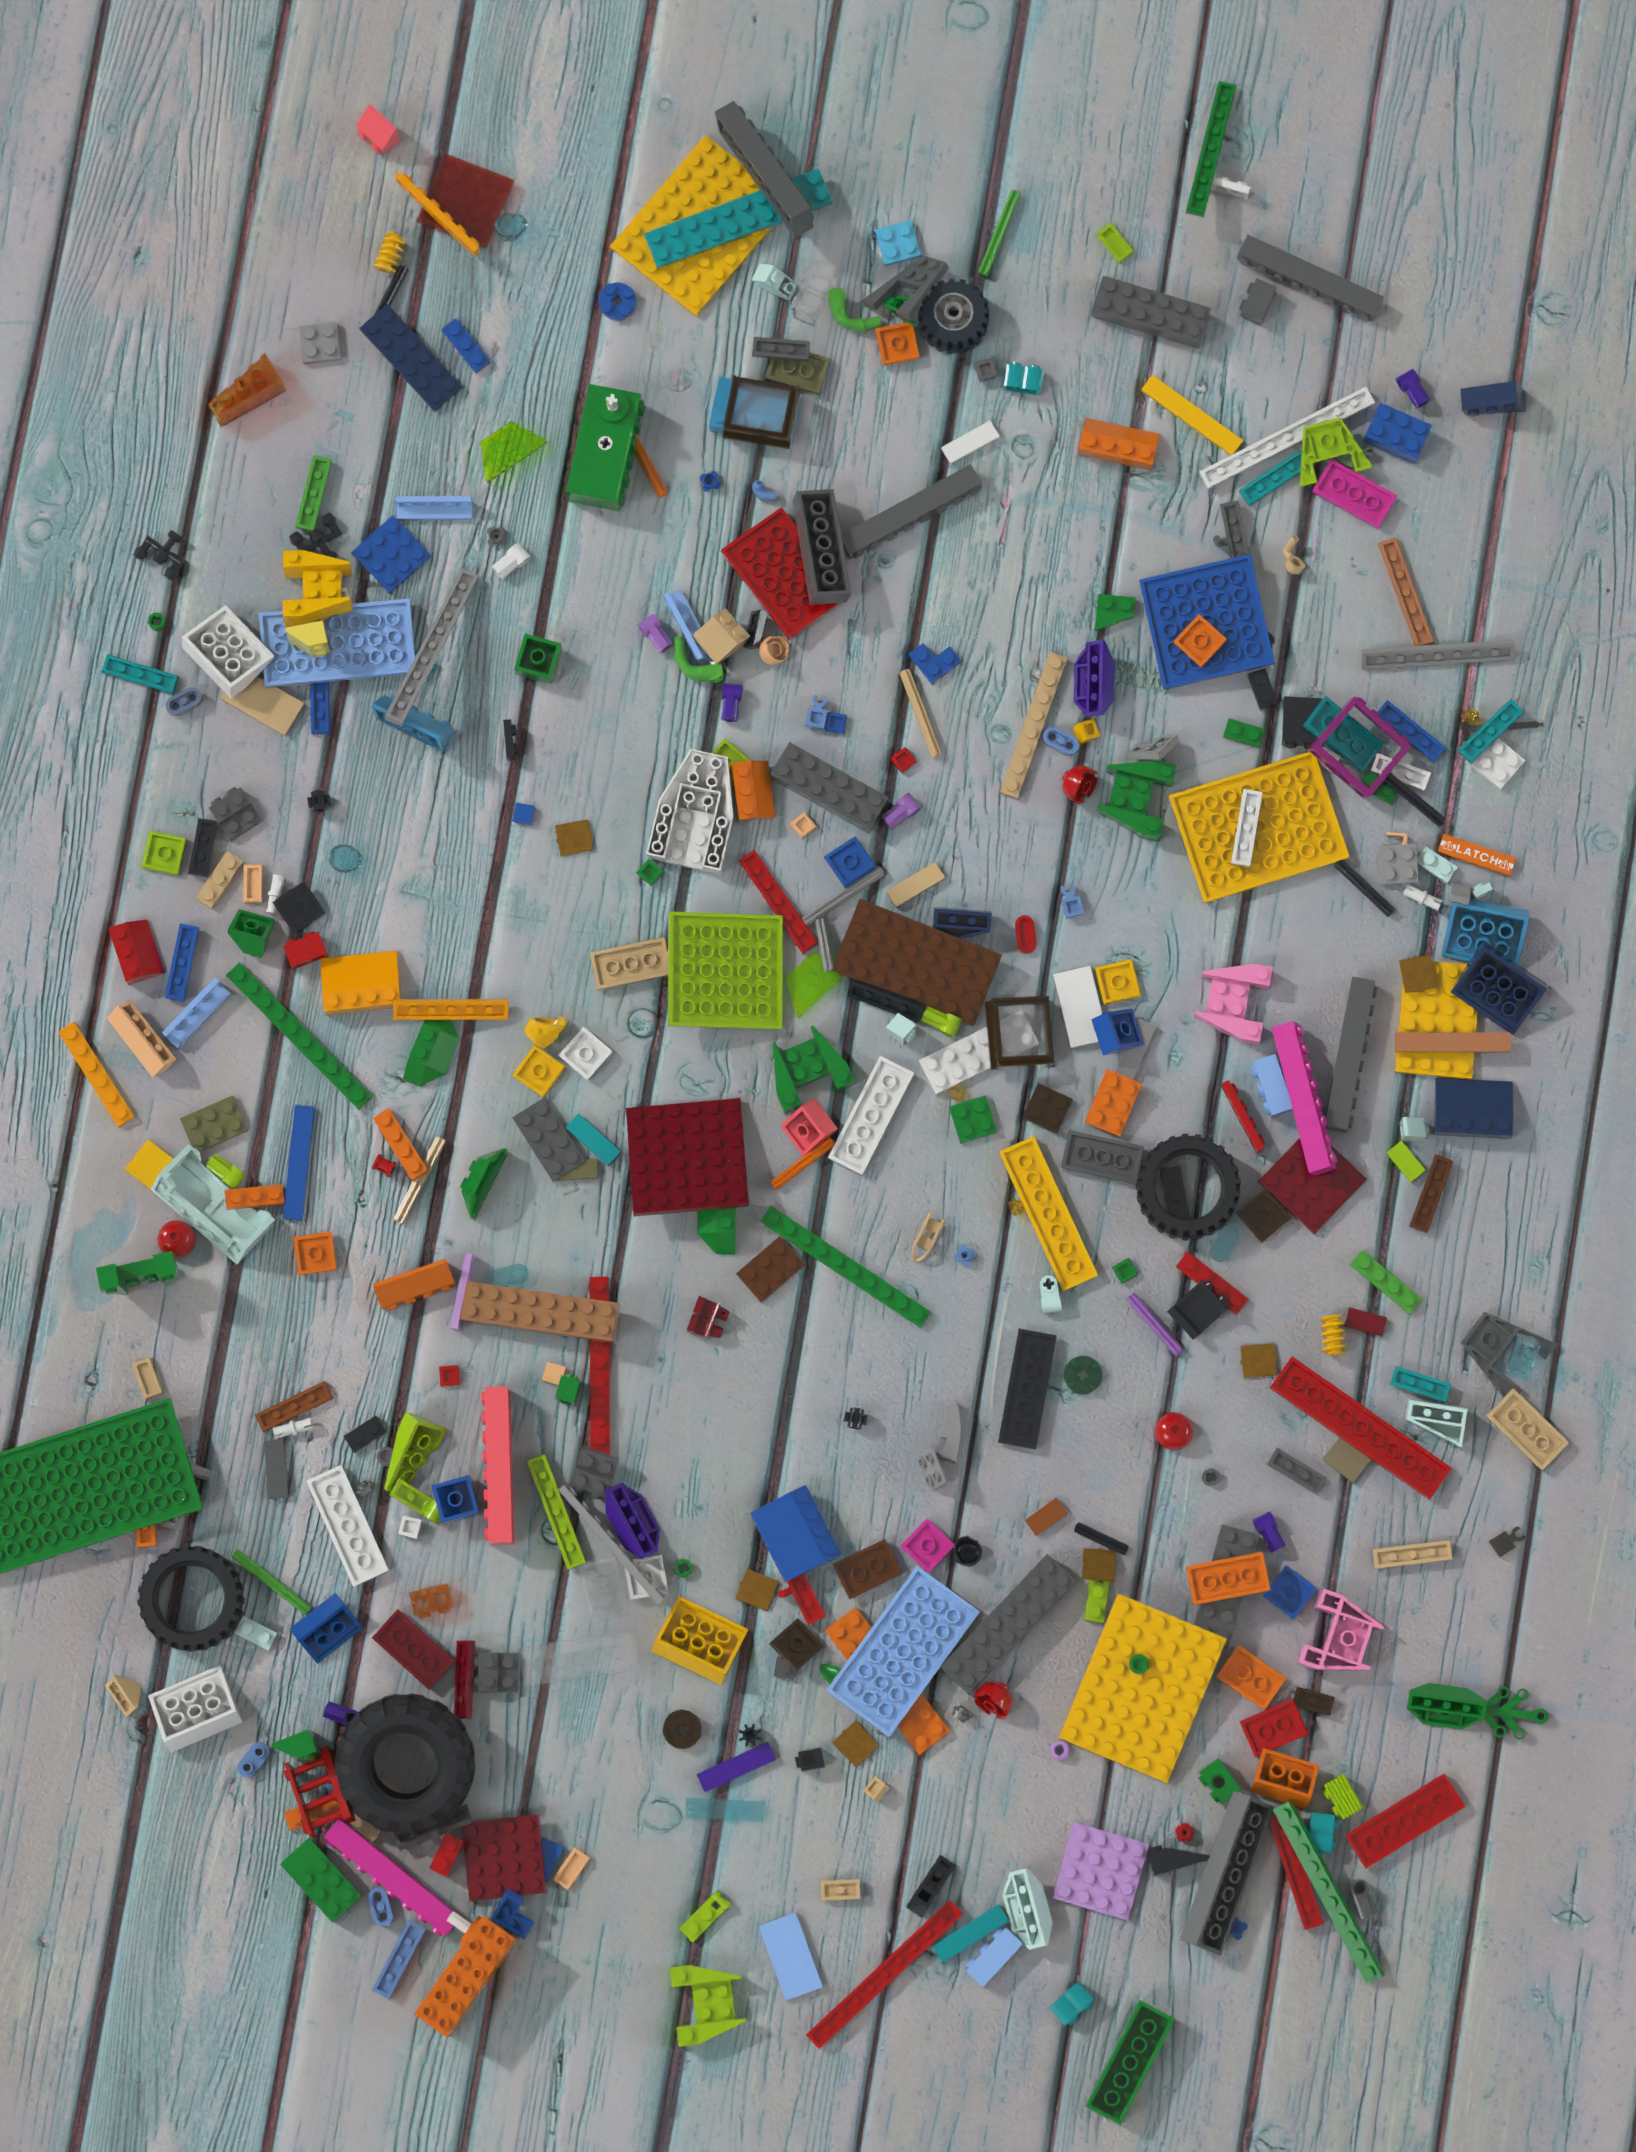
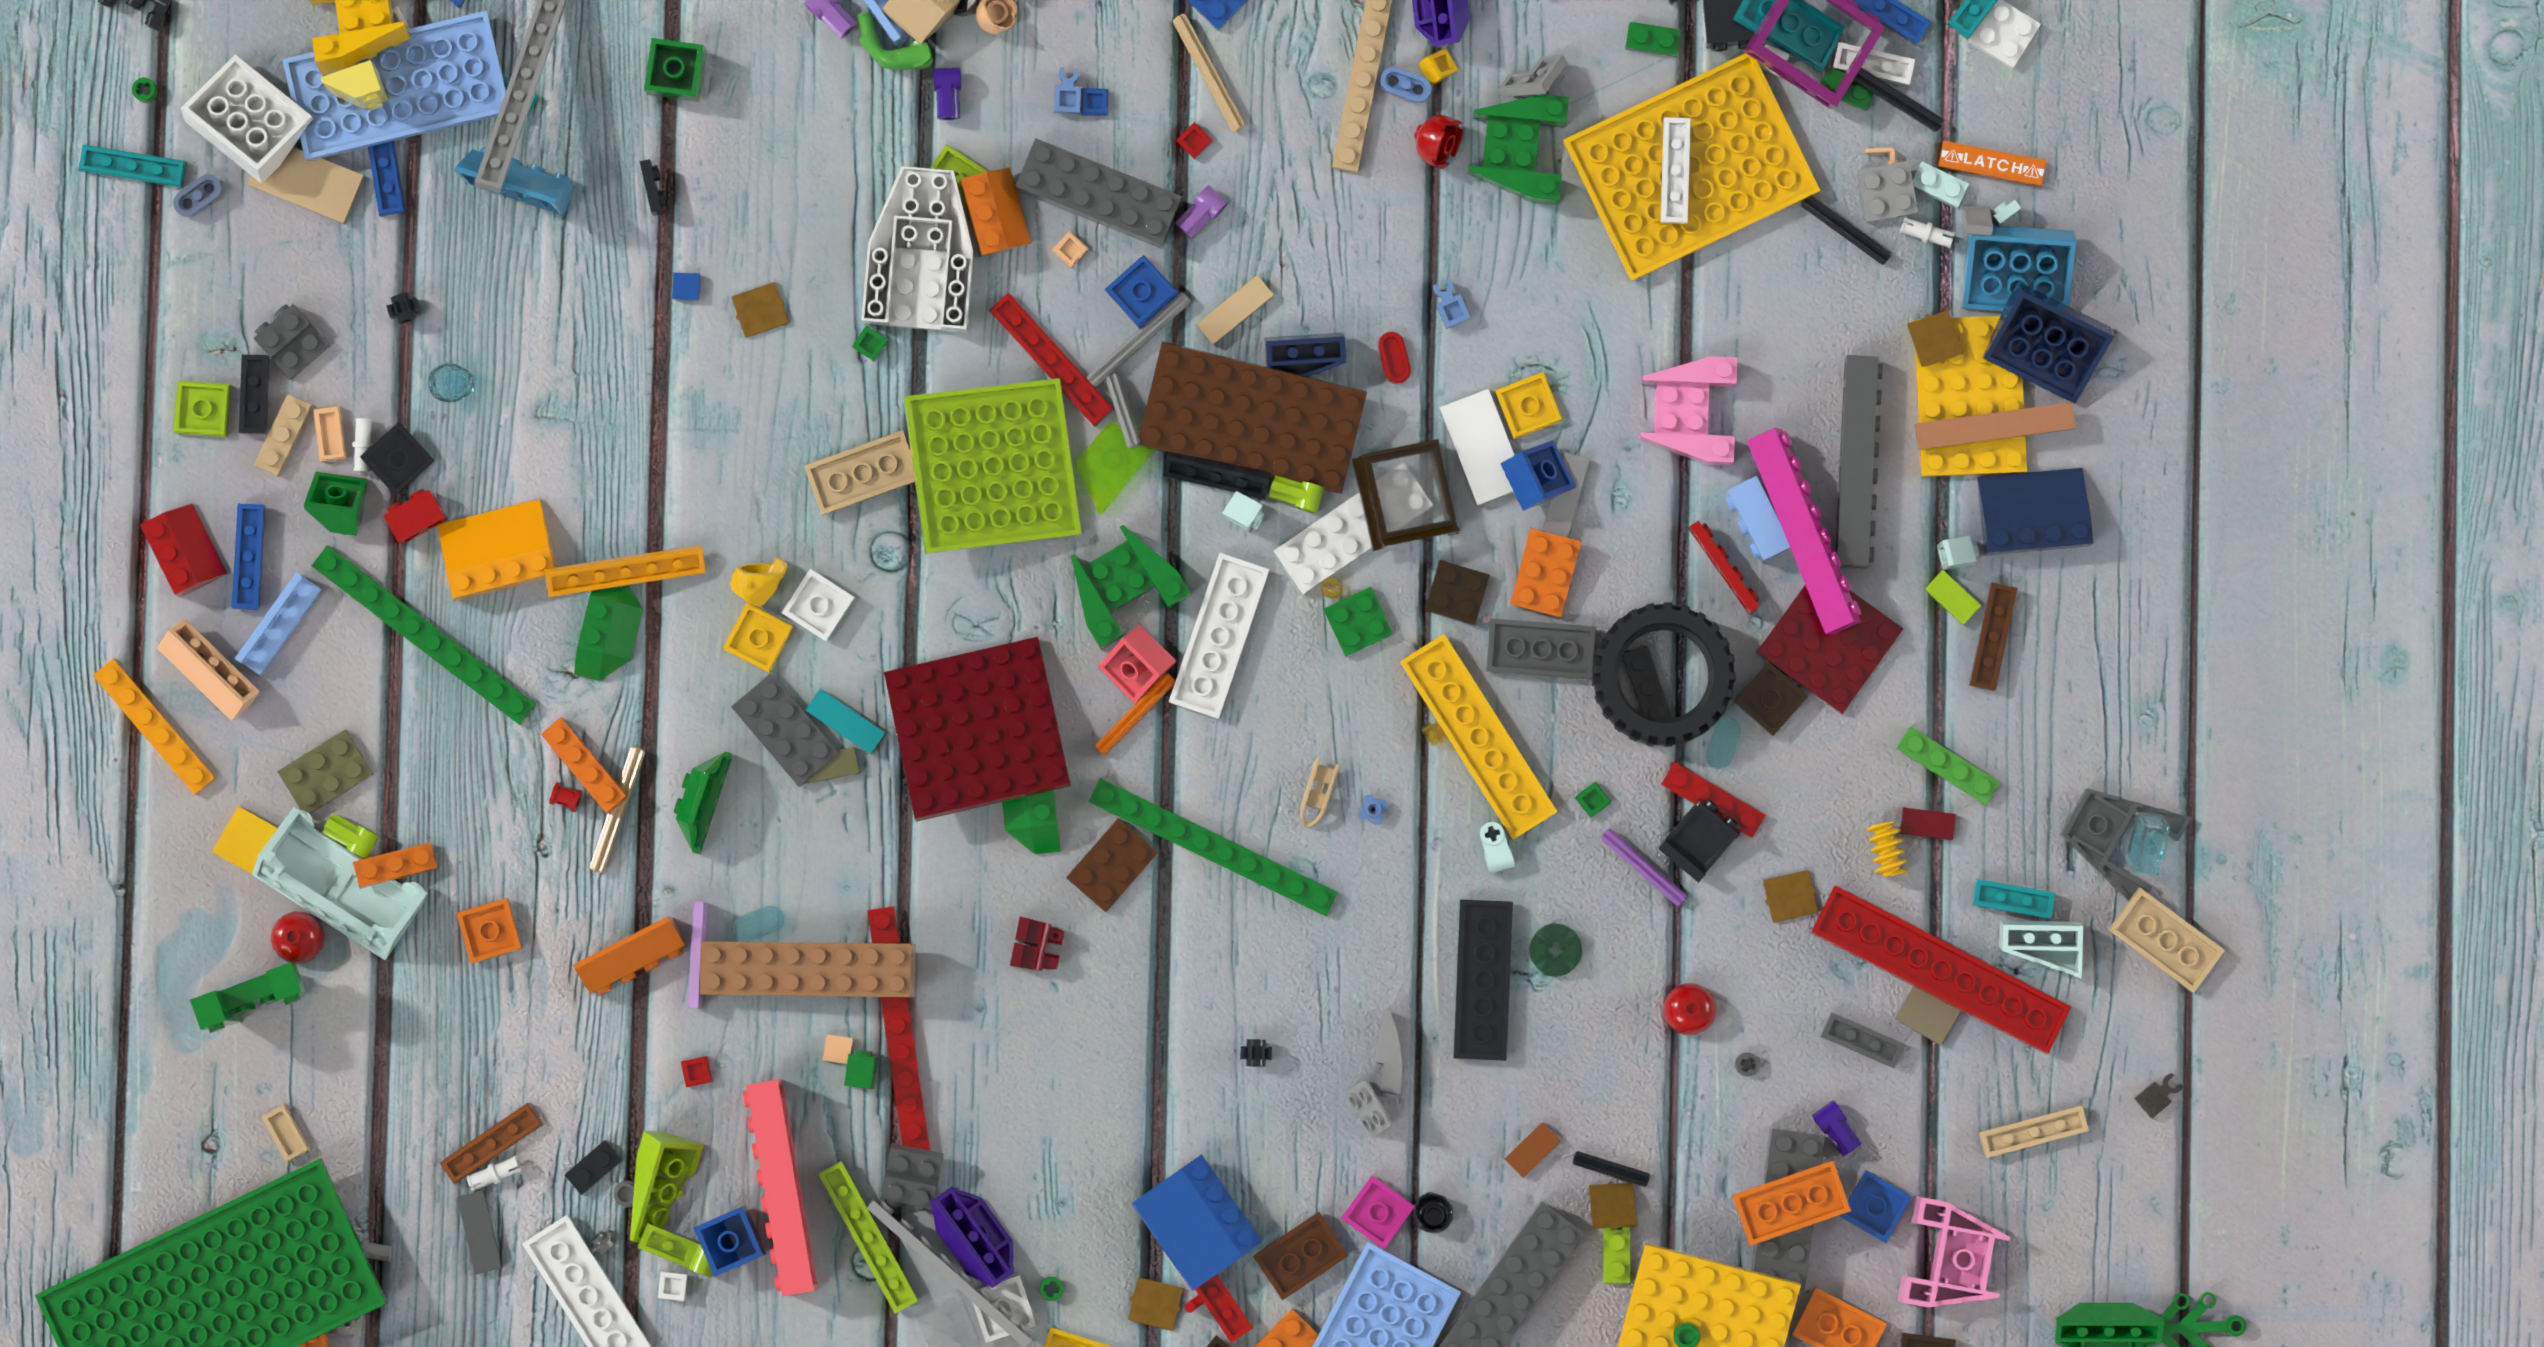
camera: 10 degrees left, 5 degrees up
(298, 1163) = (448, 809): blue tile -> none

